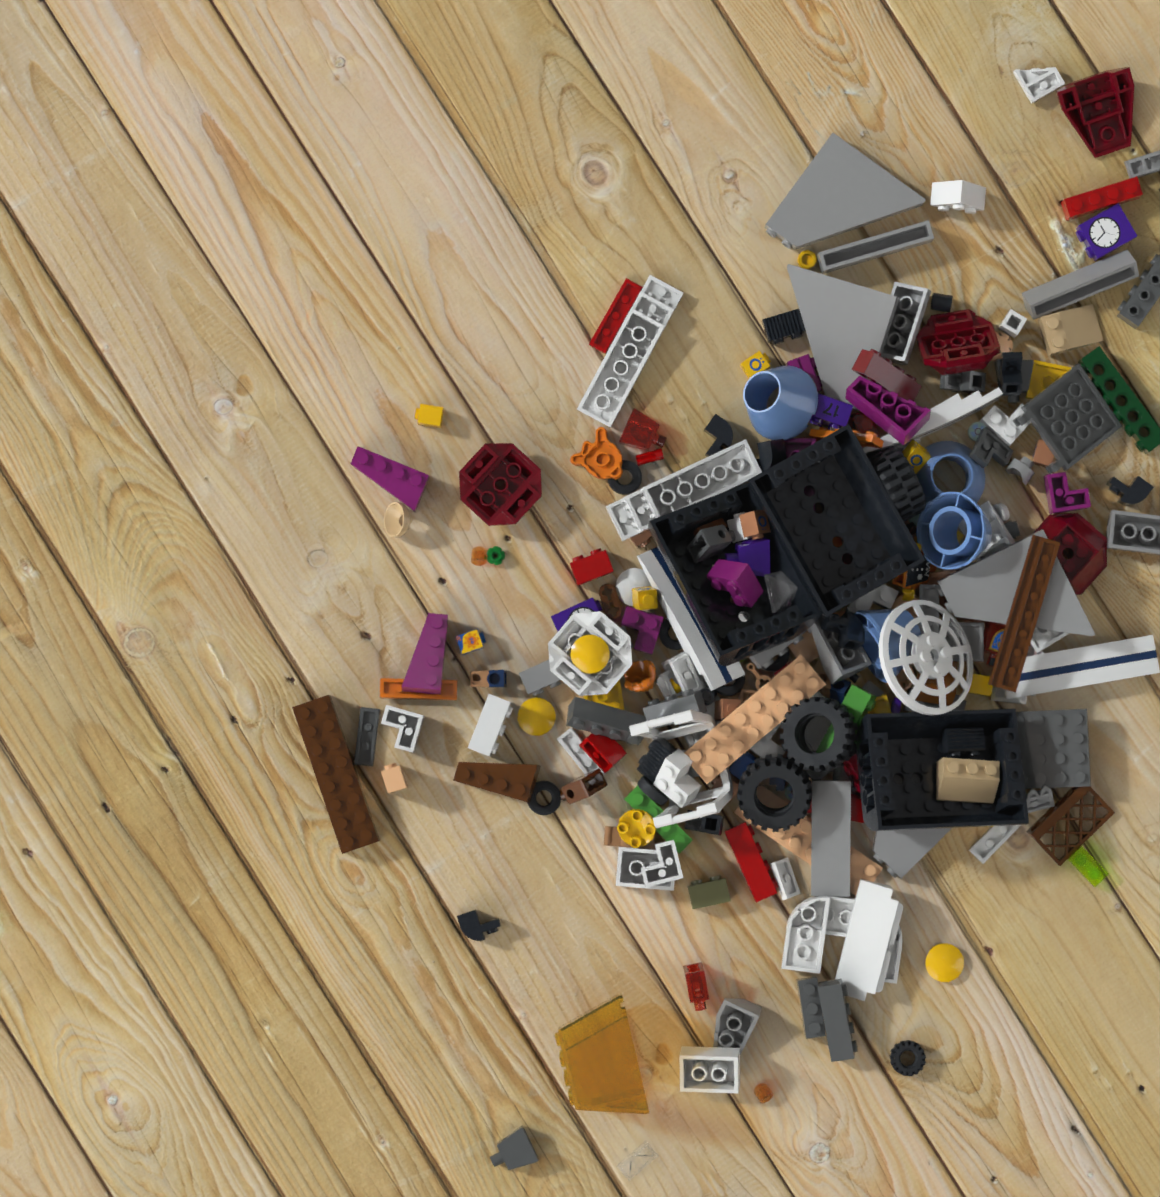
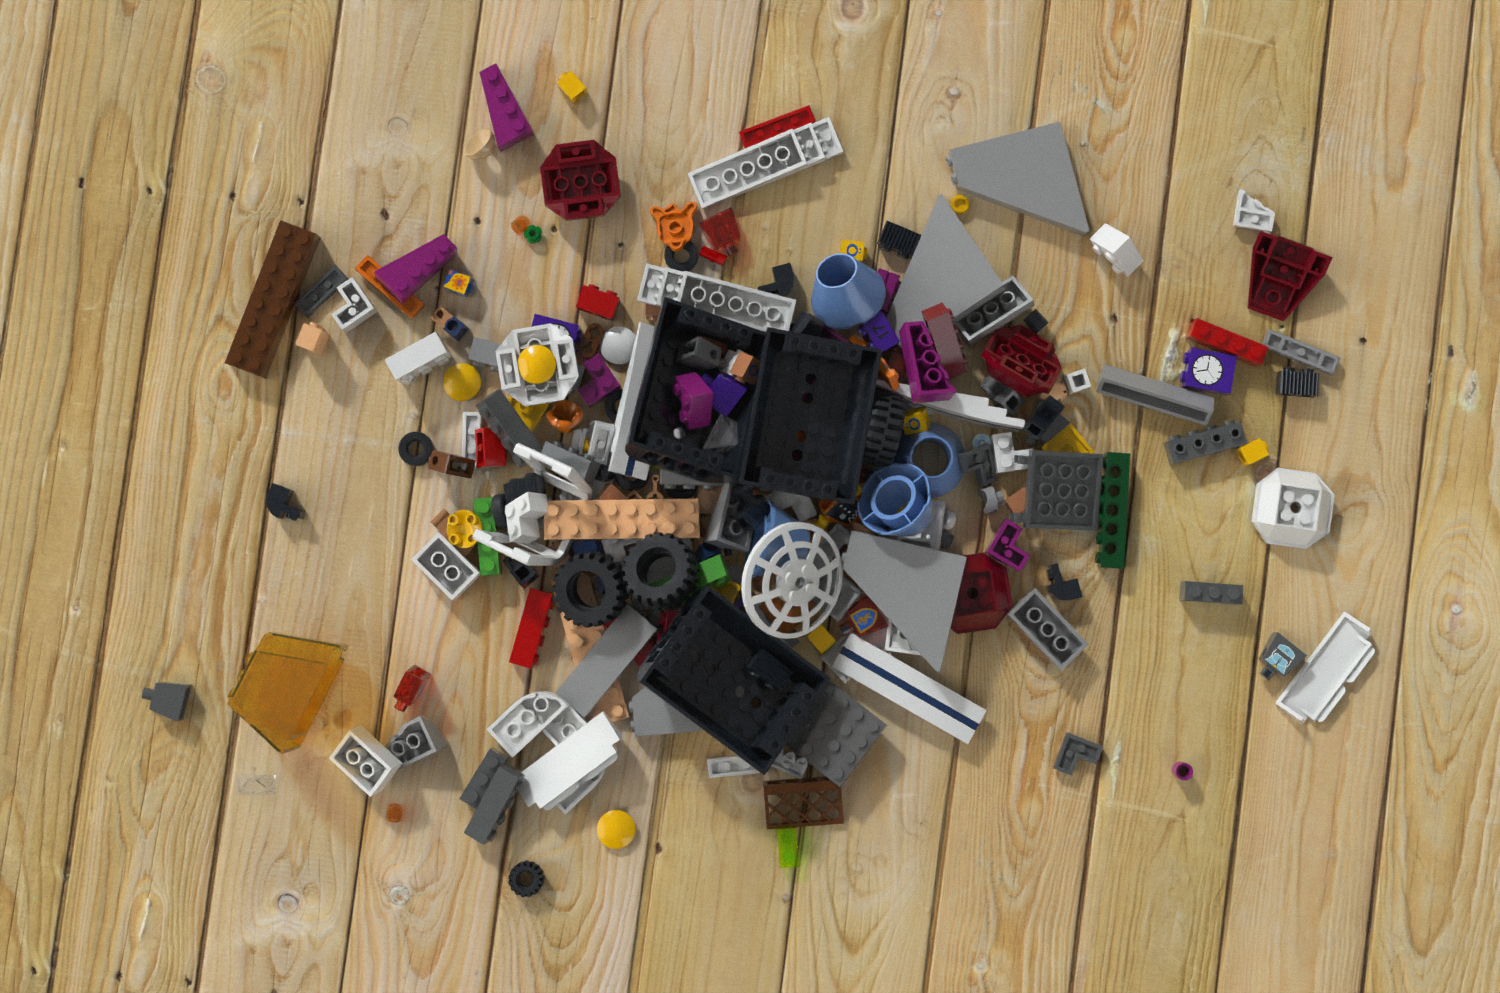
camera: 40 degrees right, 0 degrees up
(504, 779) = (395, 409): reddish brown wedge -> none
(644, 598) = (617, 358): yellow brick -> none
(668, 867) = (459, 578): white brick -> none
(708, 893) = (479, 625): olive brick -> none
(785, 878) = (547, 662): white plate -> none
(875, 247) = (1020, 236): light grey brick -> none
(967, 780) = (746, 702): tan slope -> none
(1024, 613) = (897, 609): reddish brown plate -> none
(1070, 329) = (1118, 423): tan slope -> none

